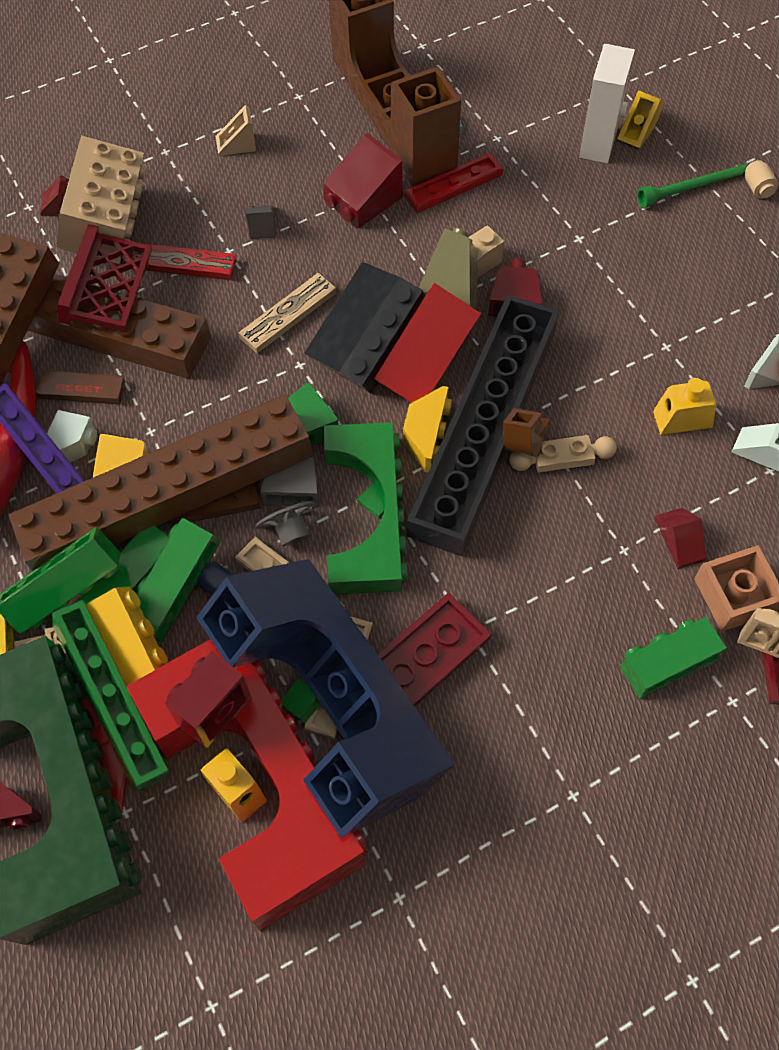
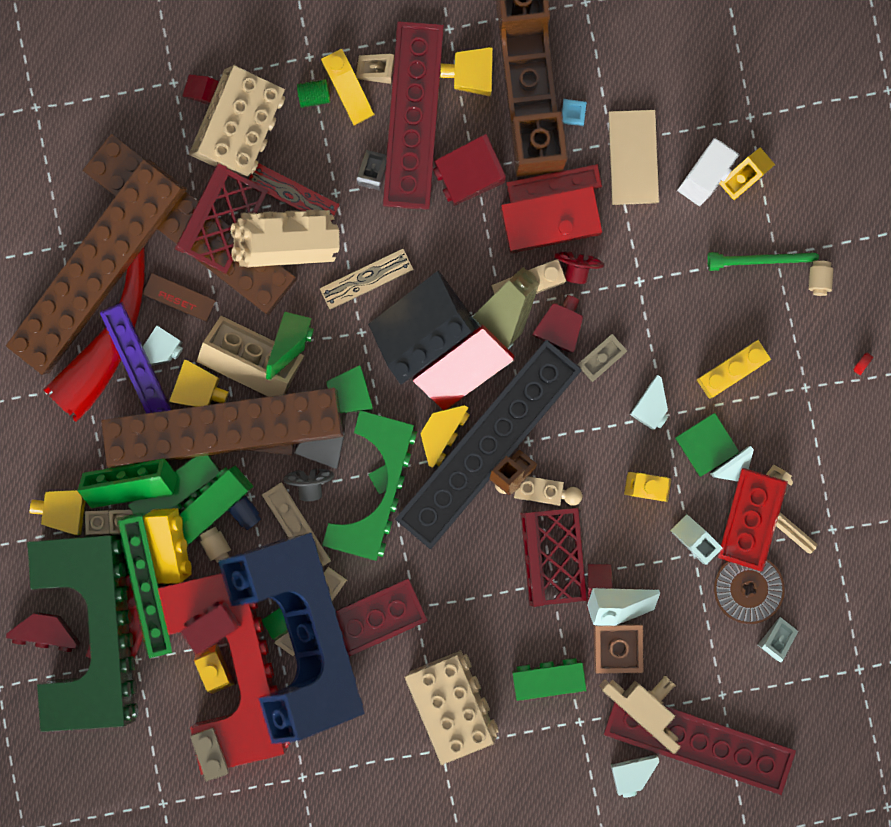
camera: 15 degrees right, 25 degrees up
(167, 276) = (284, 238): none -> tan brick
(168, 418) = (244, 358): none -> tan slope
(177, 170) = (313, 93): none -> green piece
(187, 628) = (215, 544): none -> tan brick
(209, 155) = (347, 86): none -> yellow slope
(218, 382) = (289, 342): none -> green slope
(256, 885) = (209, 754): none -> dark tan plate
(288, 166) = (413, 115): none -> dark red plate
(333, 113) = (471, 71): none -> yellow torso
(465, 202) = (551, 220): none -> red brick
(513, 233) = (578, 269): none -> dark red wheel
(523, 141) = (633, 157): none -> tan tile
(567, 721) = (452, 707): none -> tan brick
(575, 308) = (602, 358): none -> dark tan plate
(590, 526) = (534, 562): none -> dark red fence
(650, 335) = (652, 405): none -> light aqua slope
(717, 535) = (620, 605): none -> light aqua slope
(718, 276) = (733, 369): none -> yellow brick
(726, 357) = (707, 445): none -> green tile

